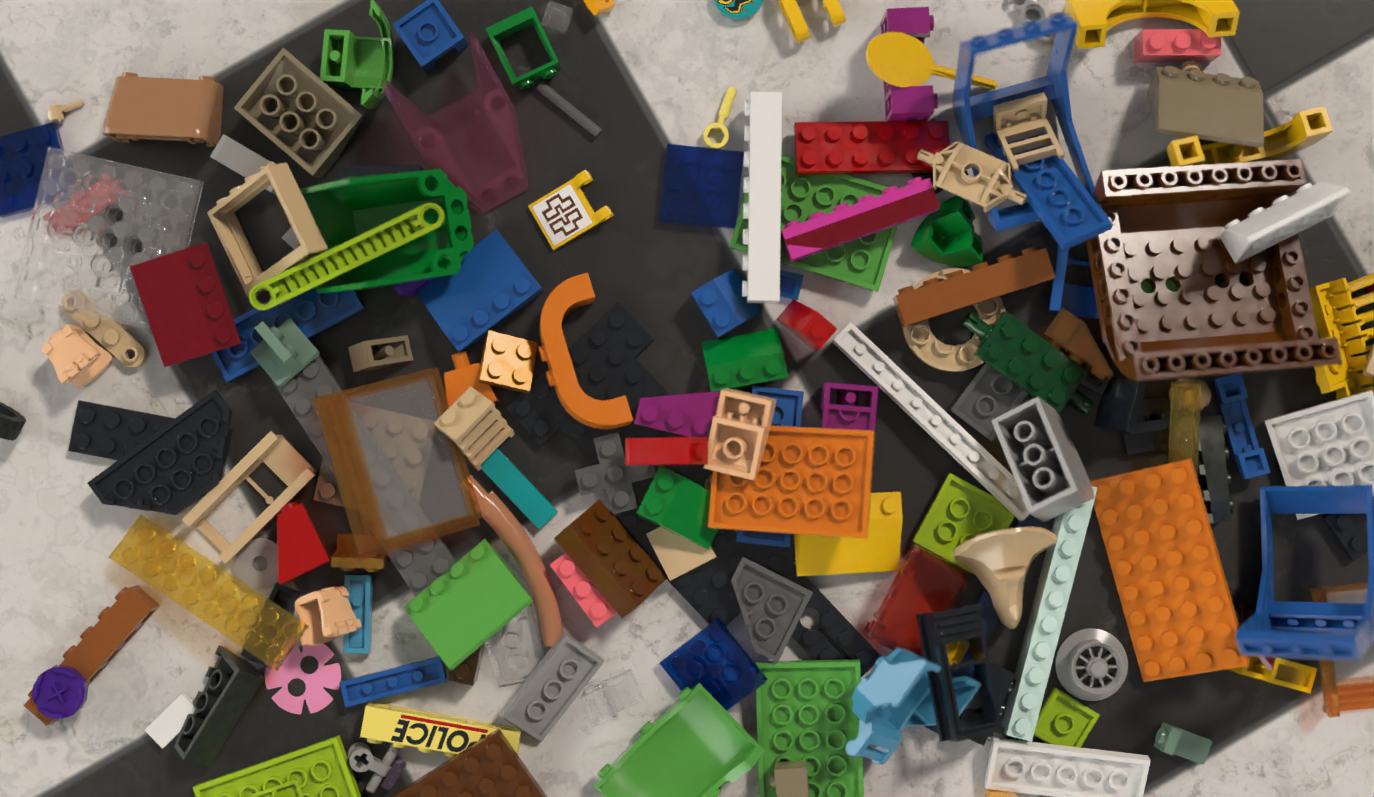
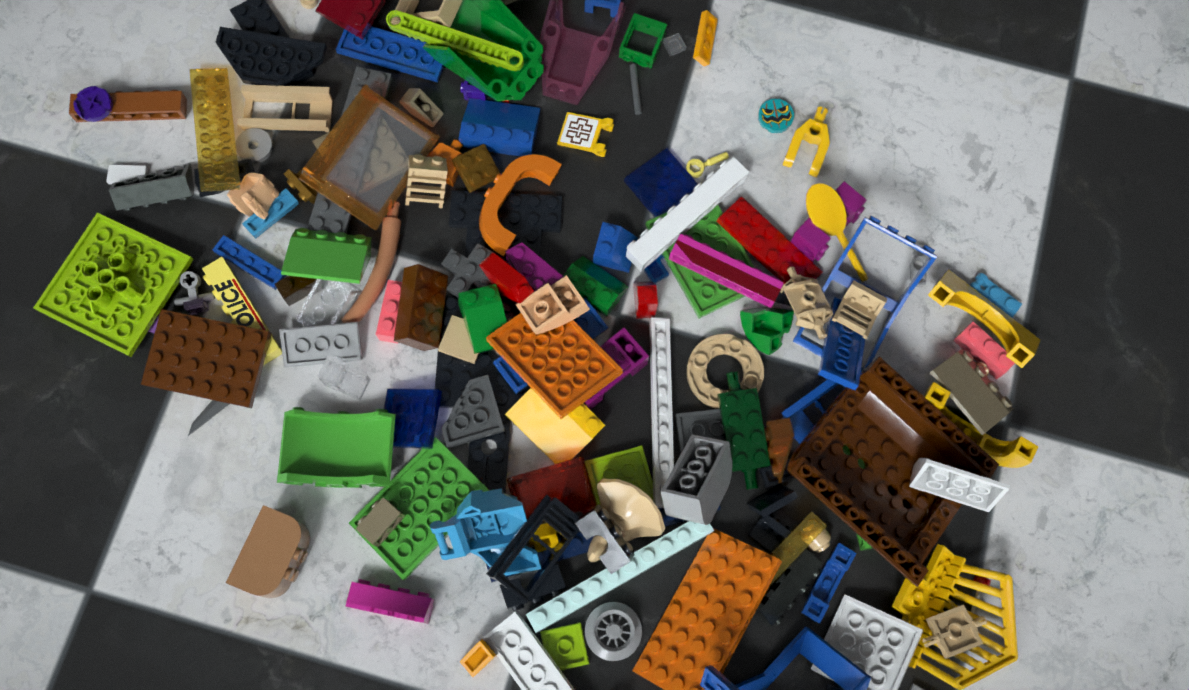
camera: 40 degrees right, 15 degrees down
(283, 351) = (377, 57): sand green bracket -> none
(298, 544) = (279, 148): red slope -> none
(315, 695) = (200, 206): bright pink piece -> none
(518, 489) = (415, 233): teal tile -> none
(973, 287) = (752, 361): dark orange brick -> none
(997, 597) = (598, 523): none -> arch

